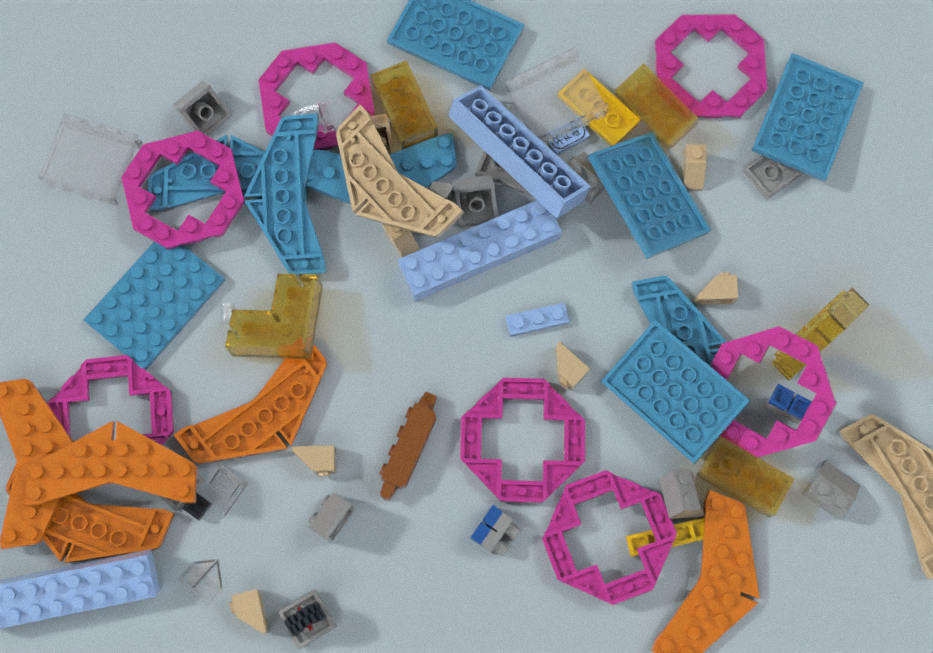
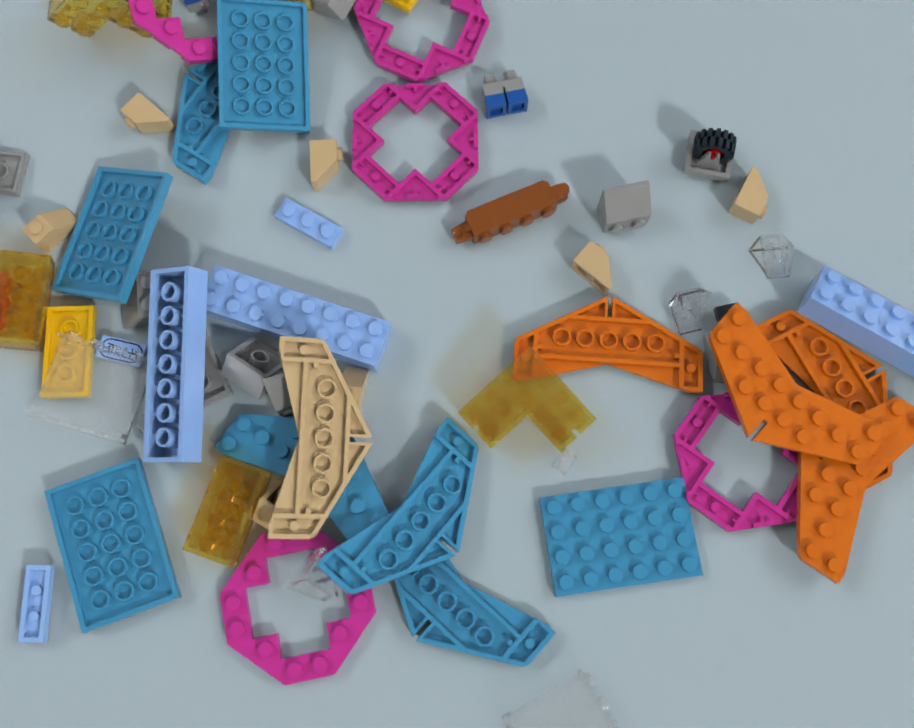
camera: 135 degrees left, 0 degrees up
(174, 150) = (556, 645): dark pink plate -> none
(202, 109) = (415, 692): light grey slope -> none

